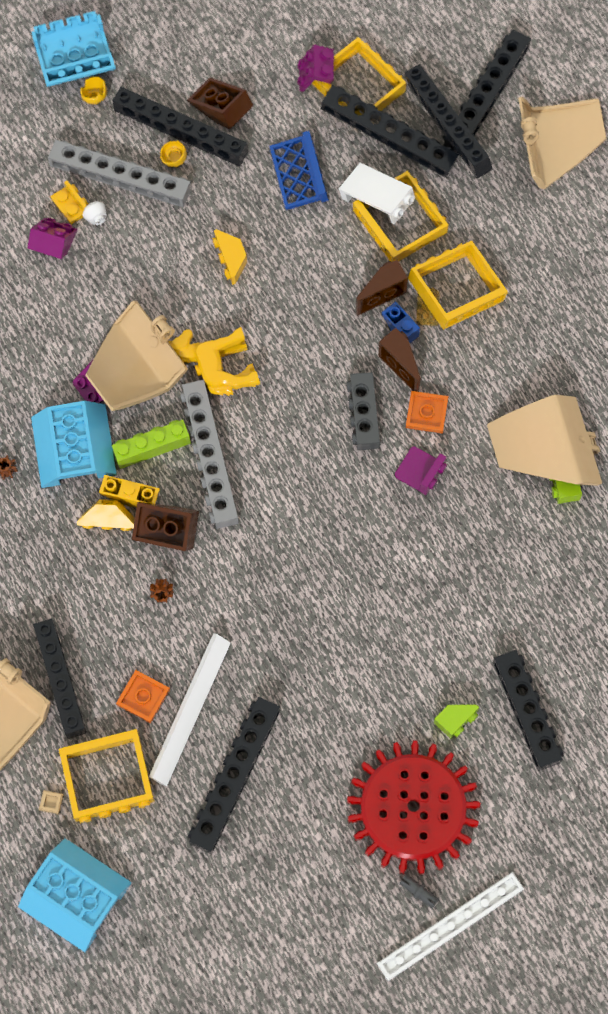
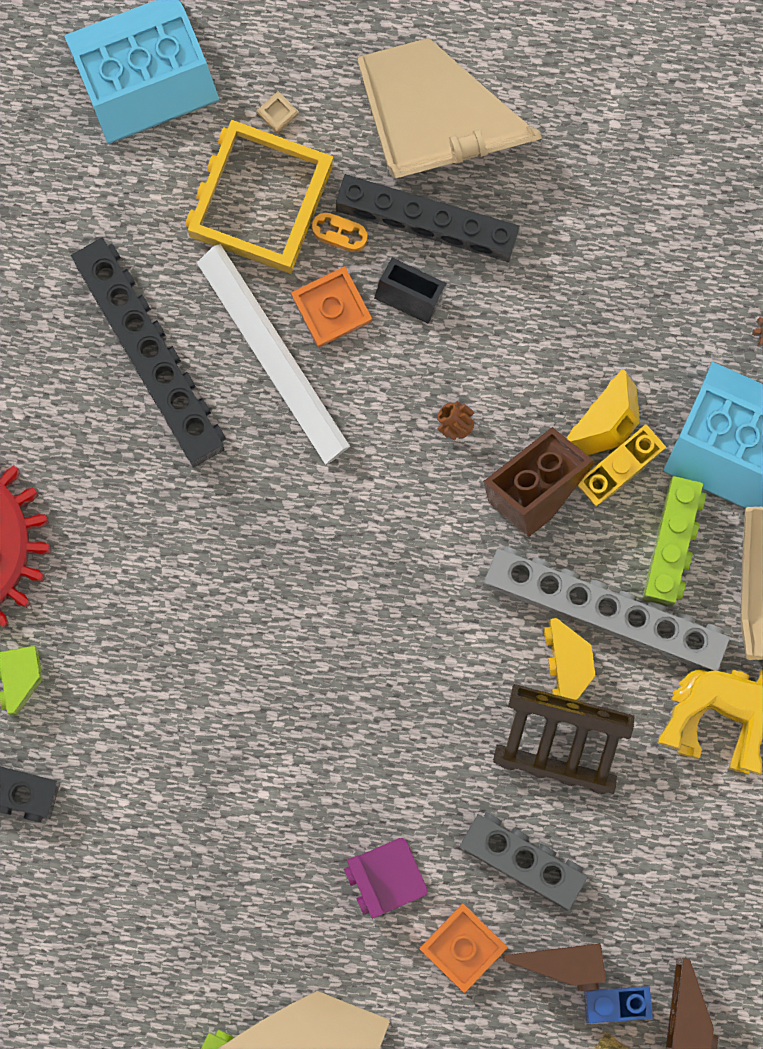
camera: 120 degrees right, 10 degrees up
(102, 720) = (342, 225): none -> light orange beam
(106, 661) = (410, 290): none -> black brick
(250, 452) = (571, 660): none -> yellow slope
(276, 434) = (557, 710): none -> dark brown fence

